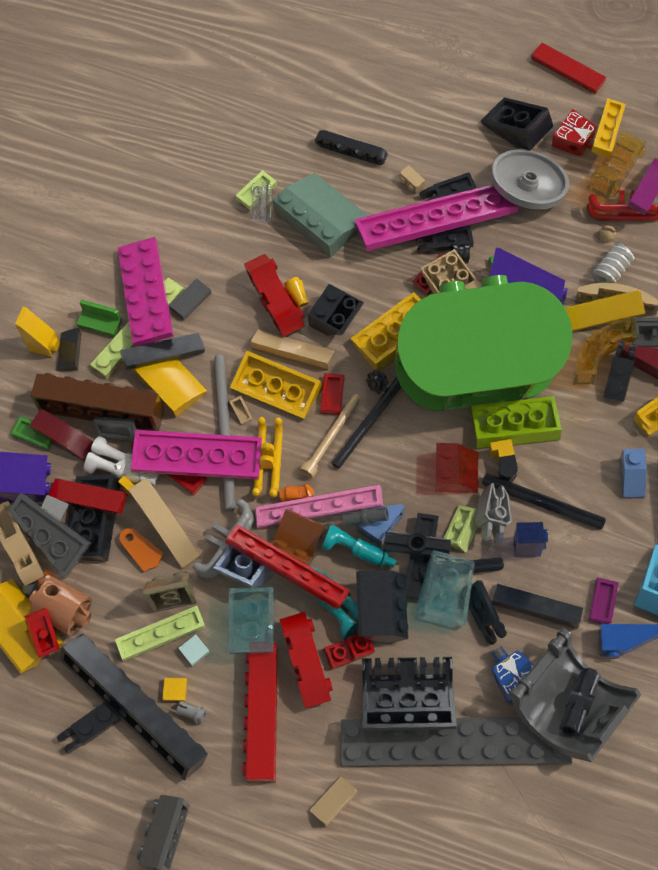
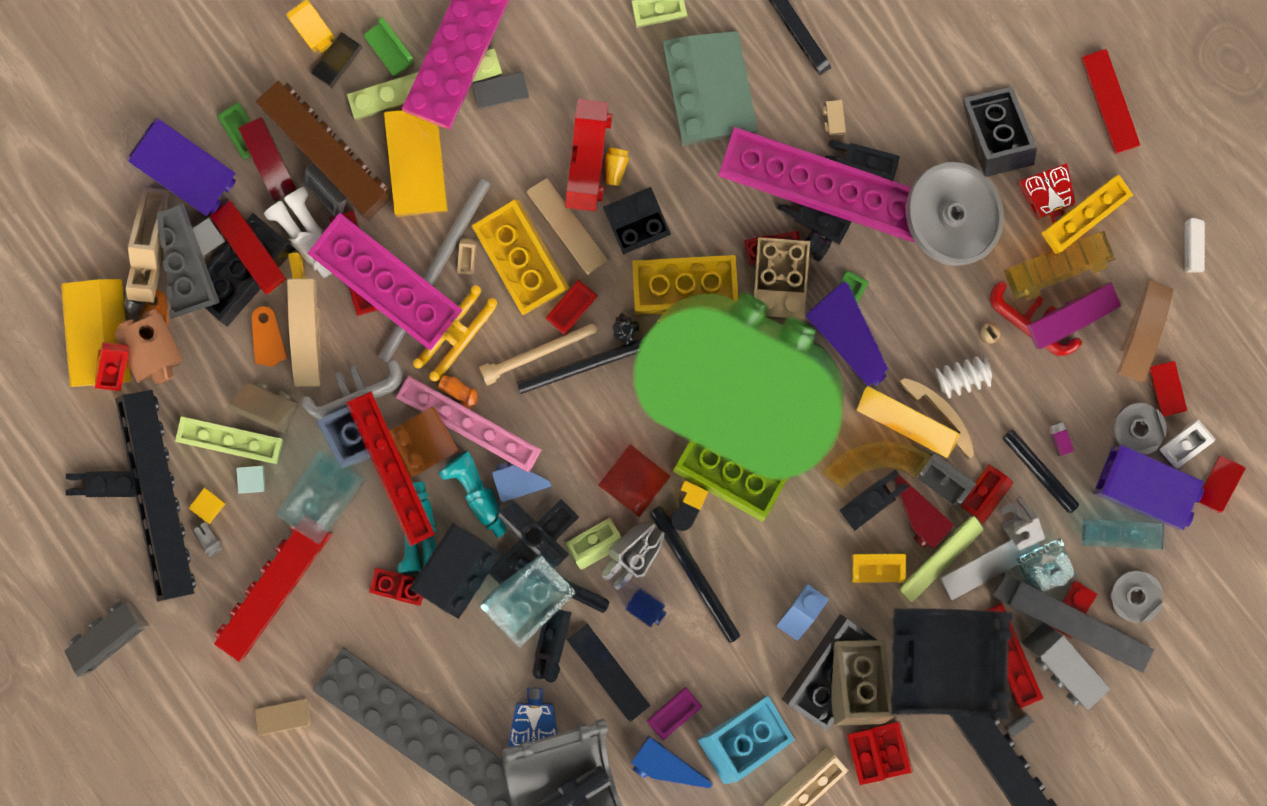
camera: 30 degrees right, 20 degrees up
(162, 351) = (428, 136): black tile -> none
(261, 196) = (647, 38): clear hinge -> none
(304, 655) = (347, 567): red brick -> none
(365, 516) = (503, 471): dark grey pin -> none
(408, 698) = (415, 677): black slope -> none

